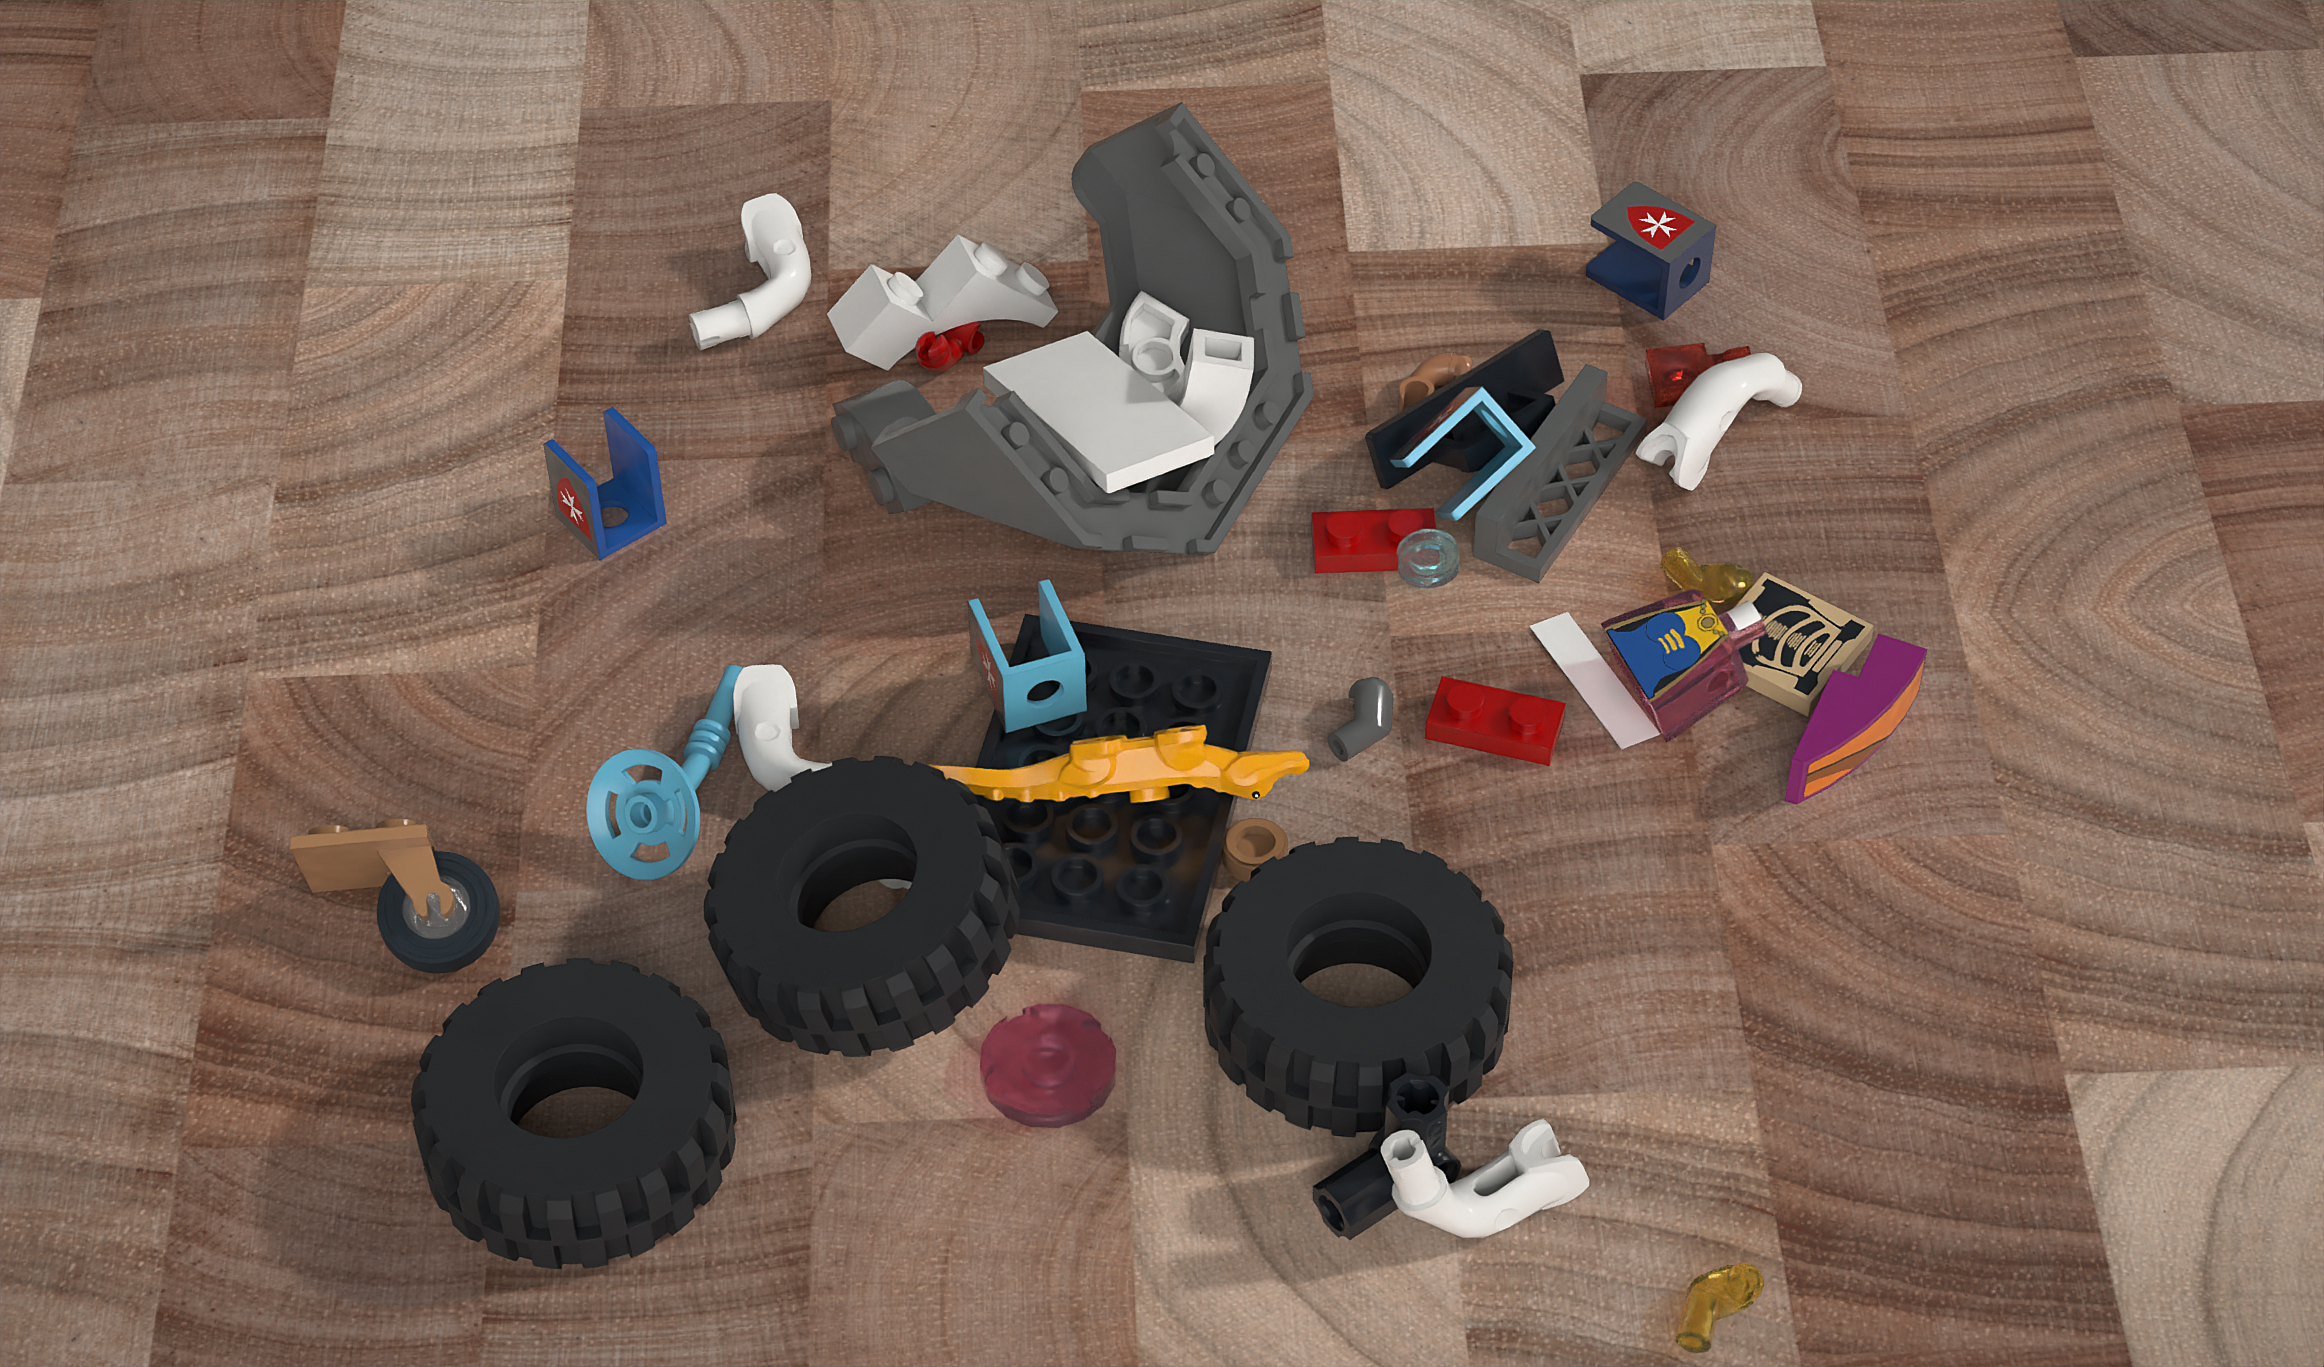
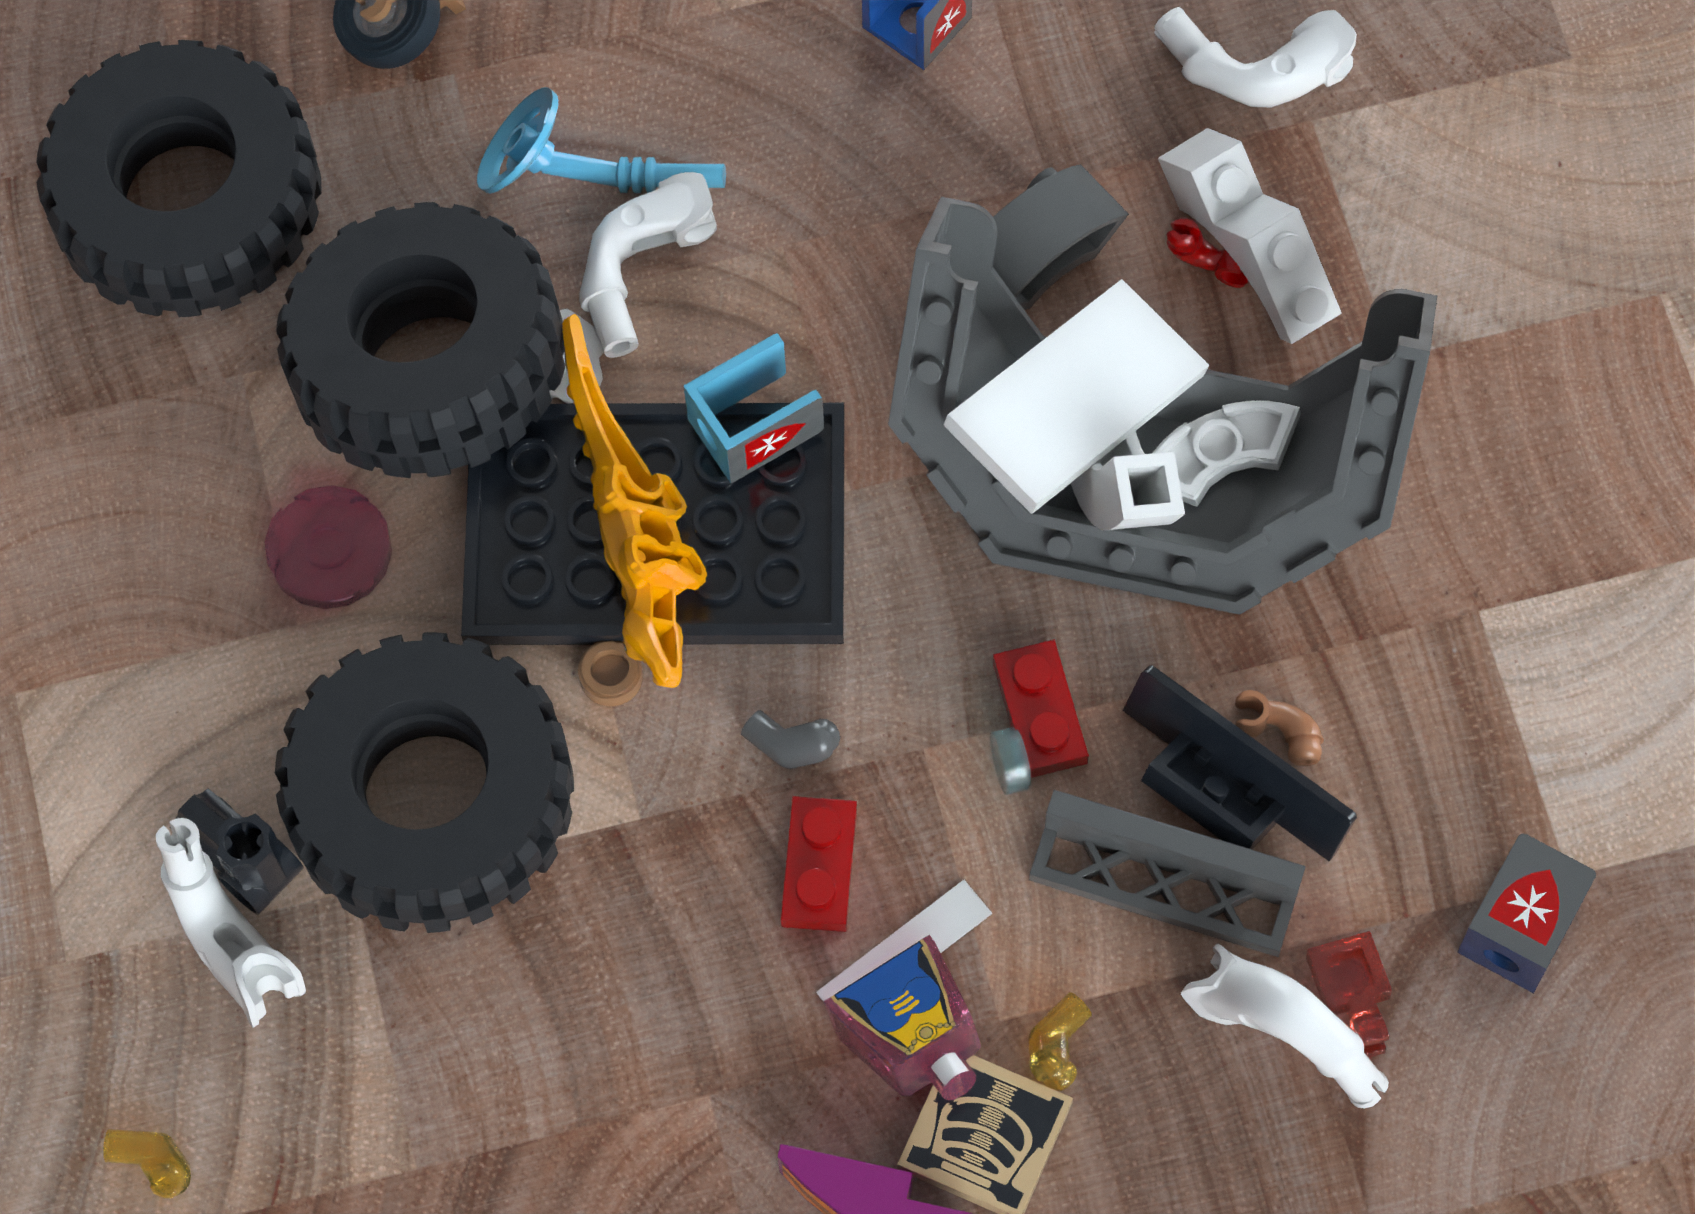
camera: 80 degrees right, 20 degrees up
(1516, 448) = (1165, 747): medium azure piece -> none

